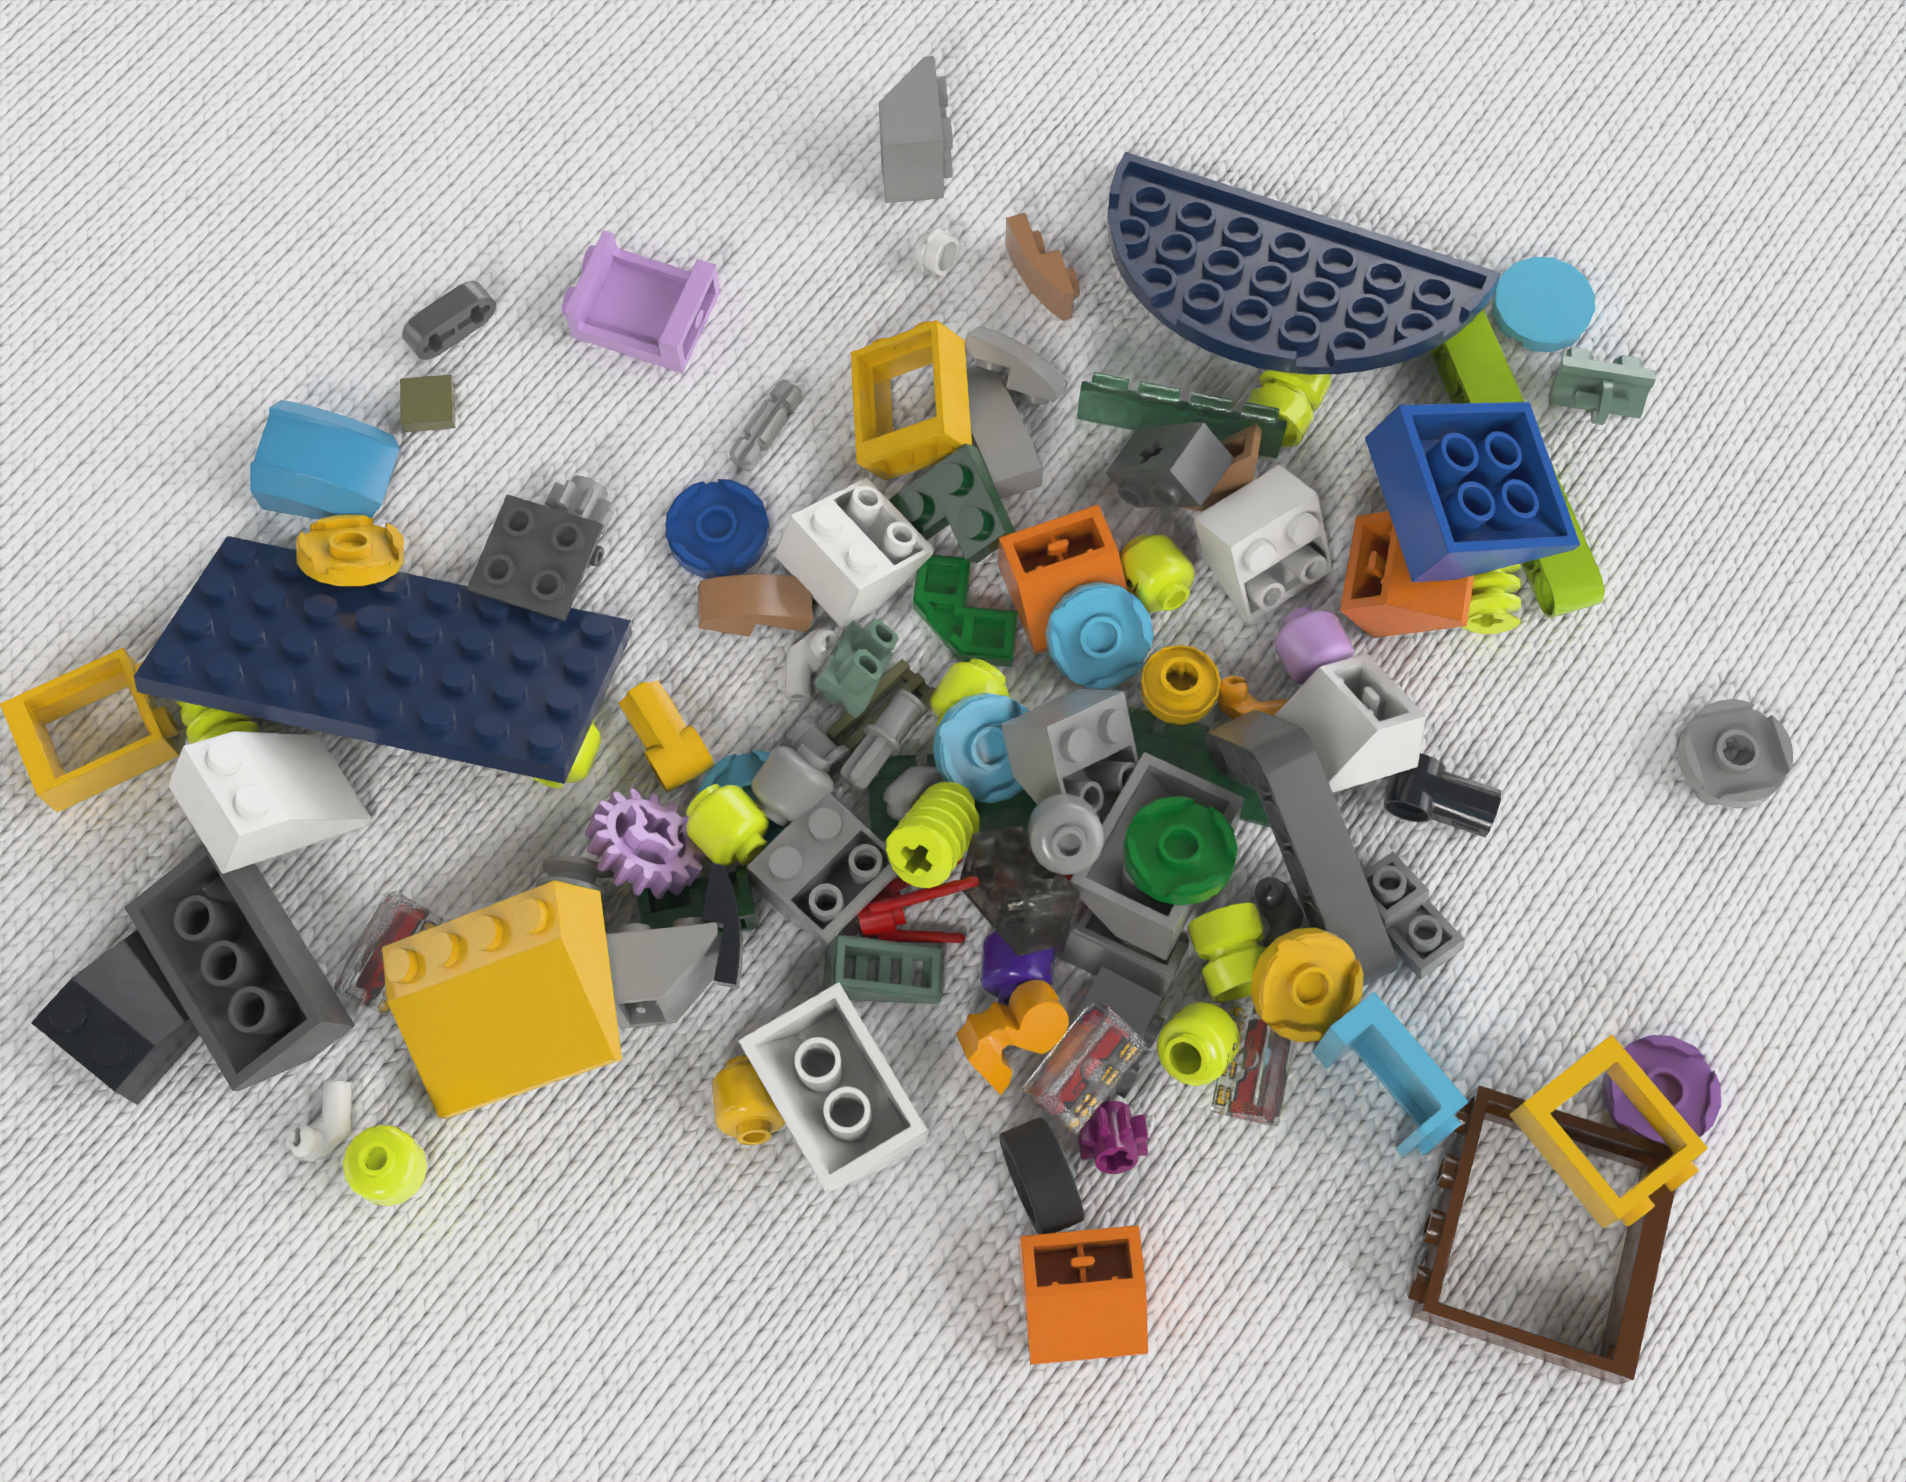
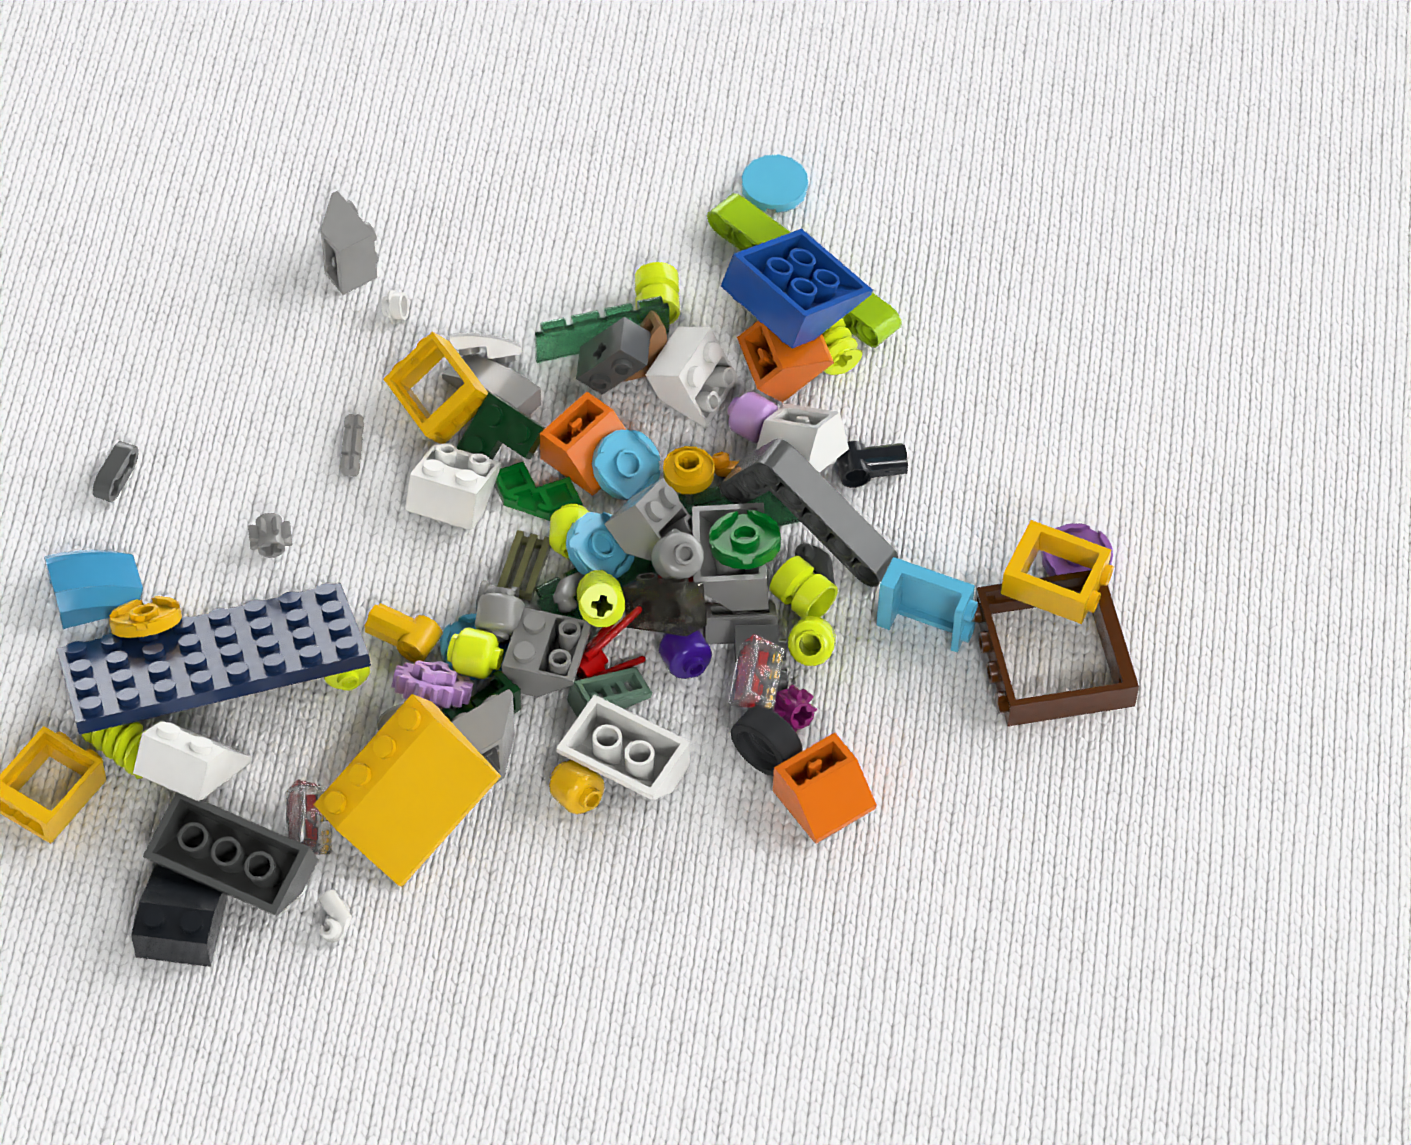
camera: 30 degrees left, 15 degrees down
(384, 1165) = (387, 914): neon yellow head -> none
(427, 403) = (131, 524): olive tile -> none
(536, 557) = (264, 569): dark grey hinge -> none
(640, 304) = (230, 413): lavender panel -> none
(717, 529) = (358, 514): blue tile -> none
(723, 909) = (499, 680): black slope -> none
(741, 601) = (404, 540): medium nougat slope -> none
(804, 660) = (459, 556): white arm -> none
(857, 665) = (494, 542): sand green hips -> none
(882, 740) = (535, 571): light grey axle -> none
(1030, 1021) = (710, 666): light orange leg -> none
(1041, 271) = (469, 291): medium nougat slope -> none
(1157, 572) = (641, 415): neon yellow head -> none
(1258, 1076) = (853, 650): clear slope -> none
(1281, 280) = (612, 231): dark blue plate -> none
(1306, 983) = (852, 579): yellow tile -> none
(1411, 921) = (901, 535): light grey slope -> none
(1601, 386) = (834, 211): sand green hips -> none
(1720, 780) = (1014, 385): light grey plate -> none

